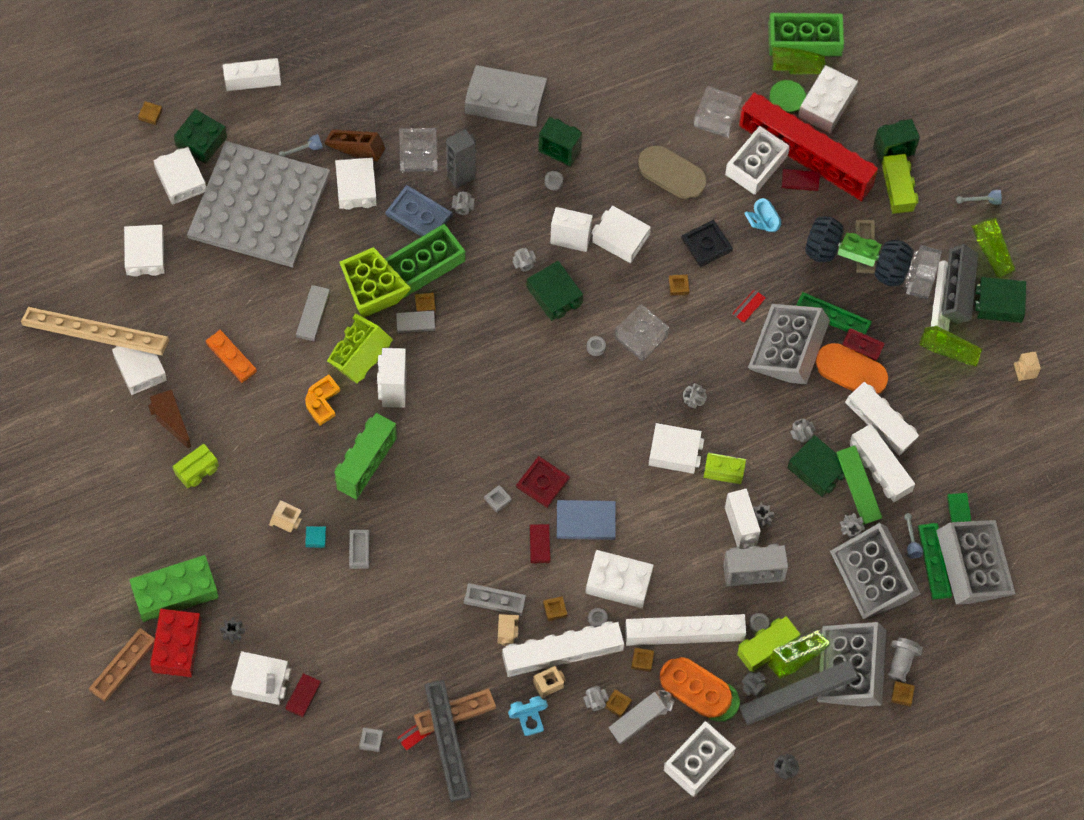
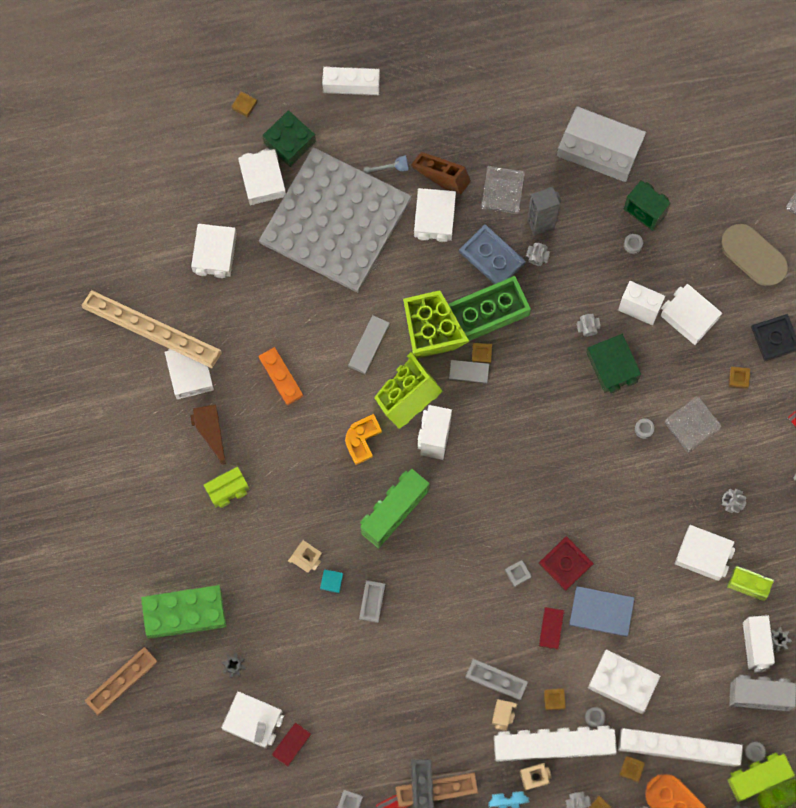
camera: 15 degrees right, 10 degrees up
(175, 643) = (176, 669): red brick -> none

